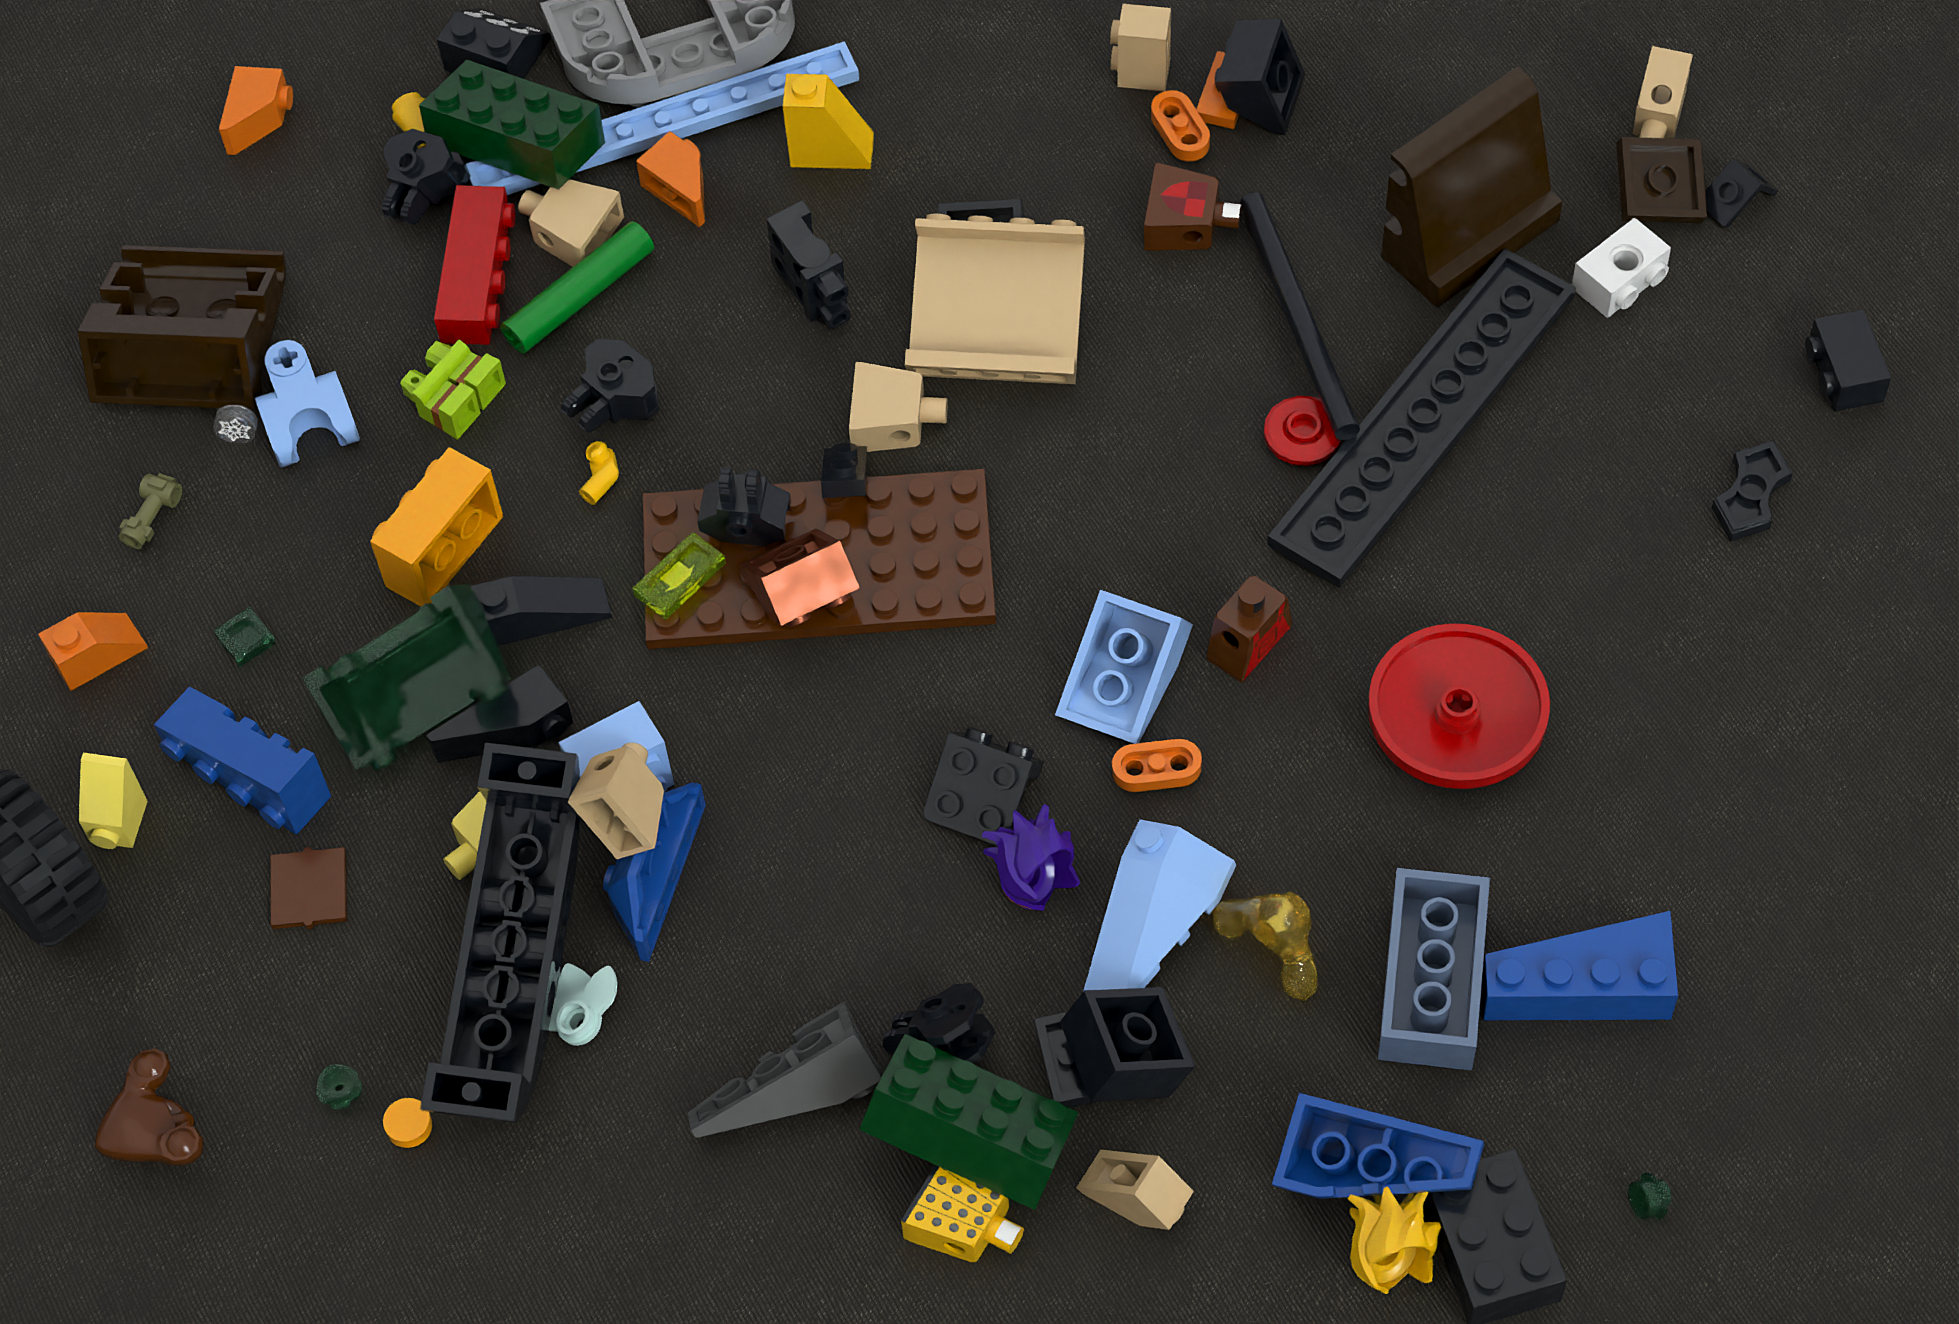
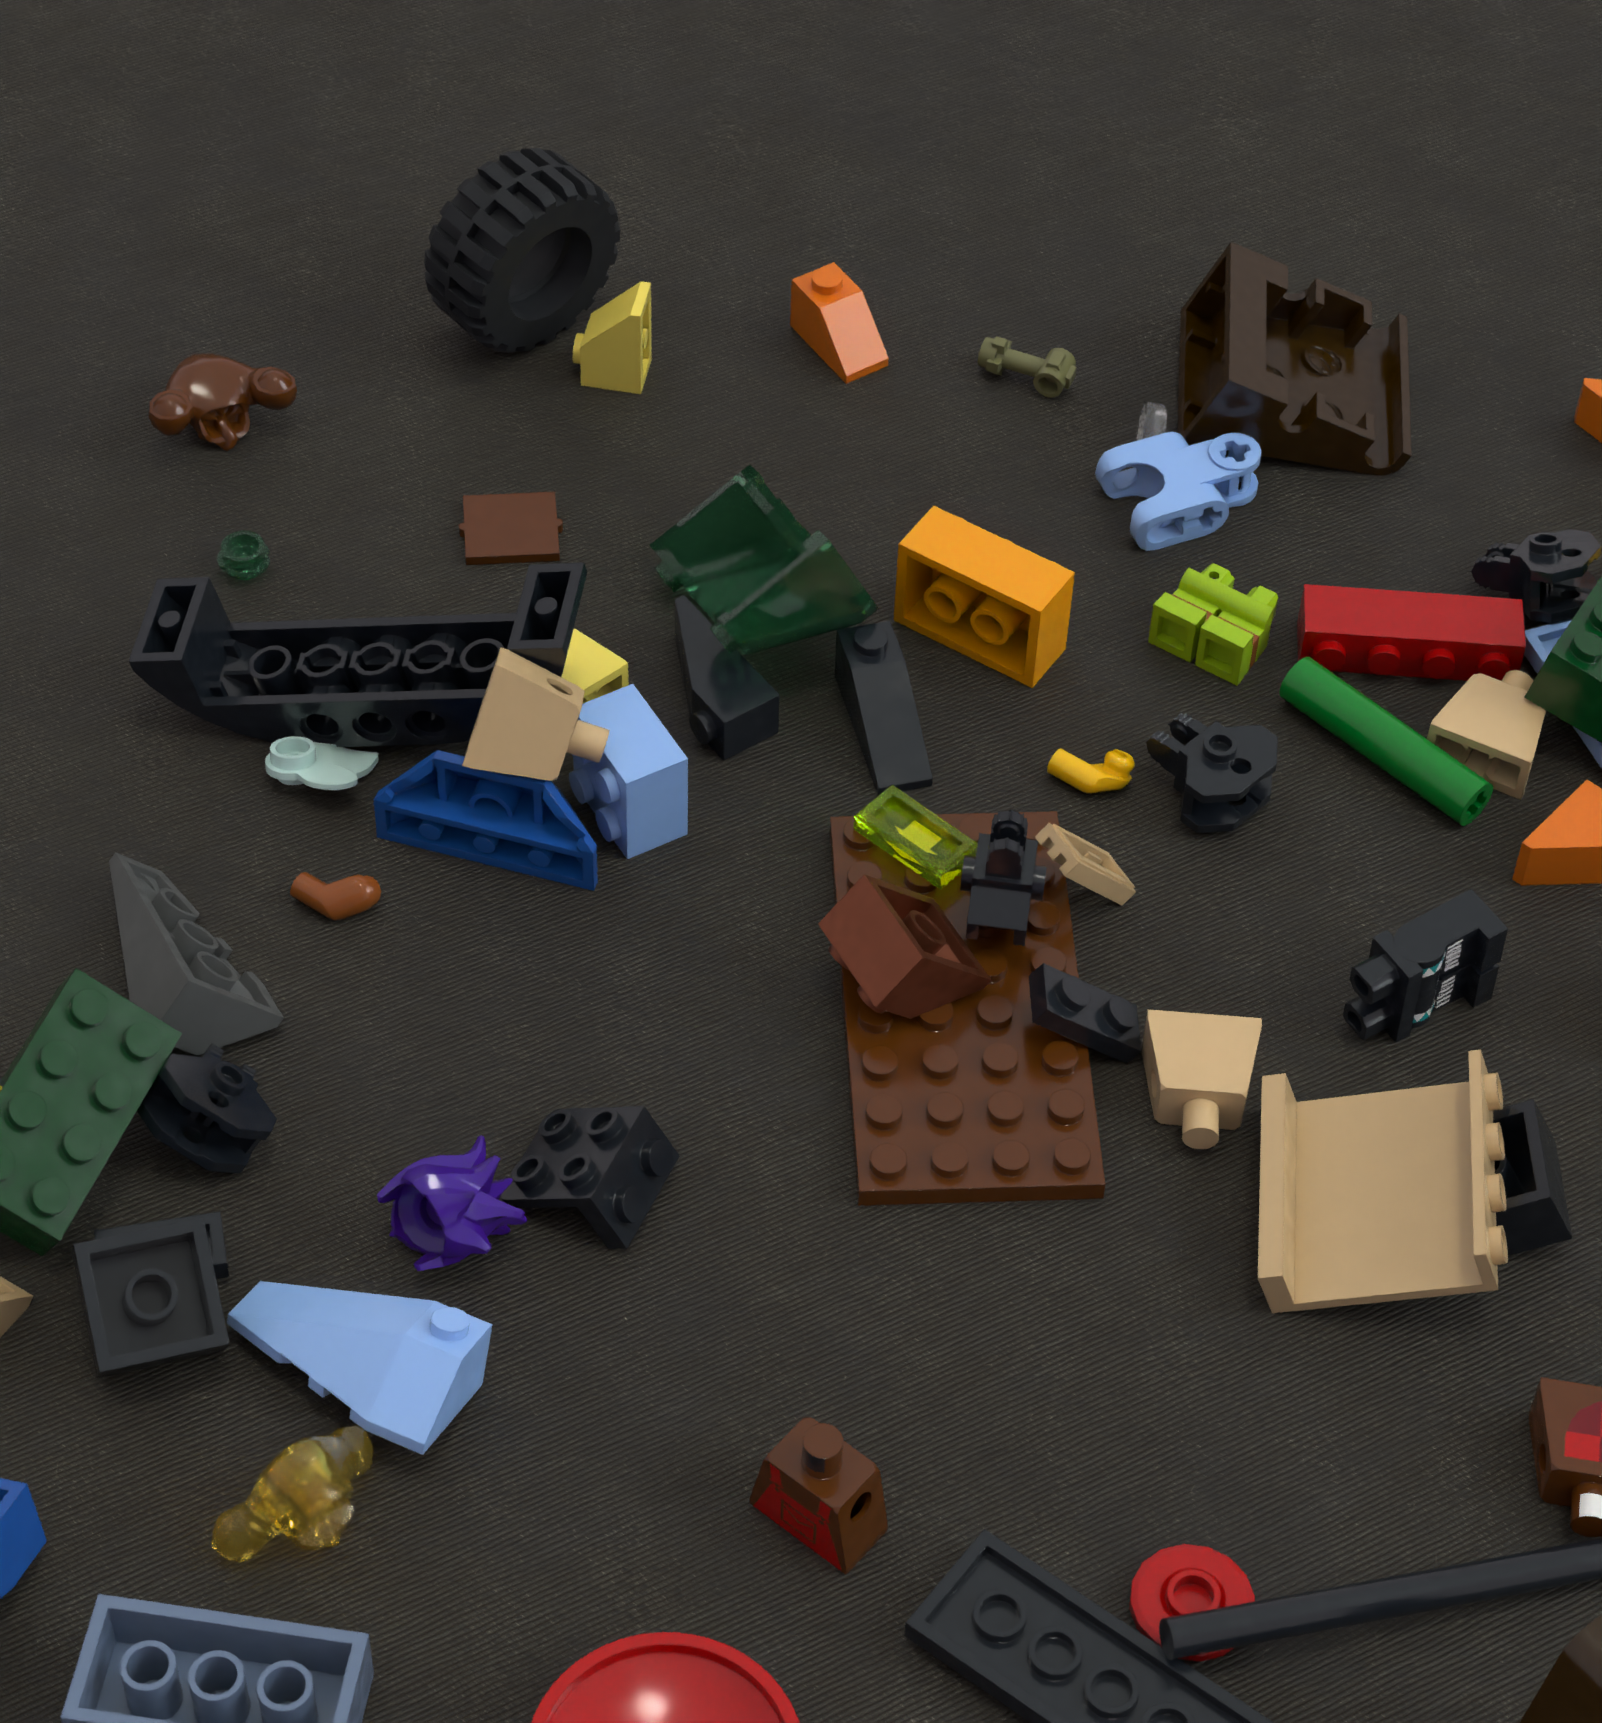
camera: 85 degrees right, 10 degrees down
(244, 636) = (853, 457): clear green tile -> none
(244, 760) = (666, 451): blue wedge -> none
(700, 467) = (1086, 863): none -> tan tile
(723, 977) = (339, 898): none -> dark orange arm
(1123, 667) = (771, 1338): light blue slope -> none
(1156, 763) = (603, 1380): orange plate -> none

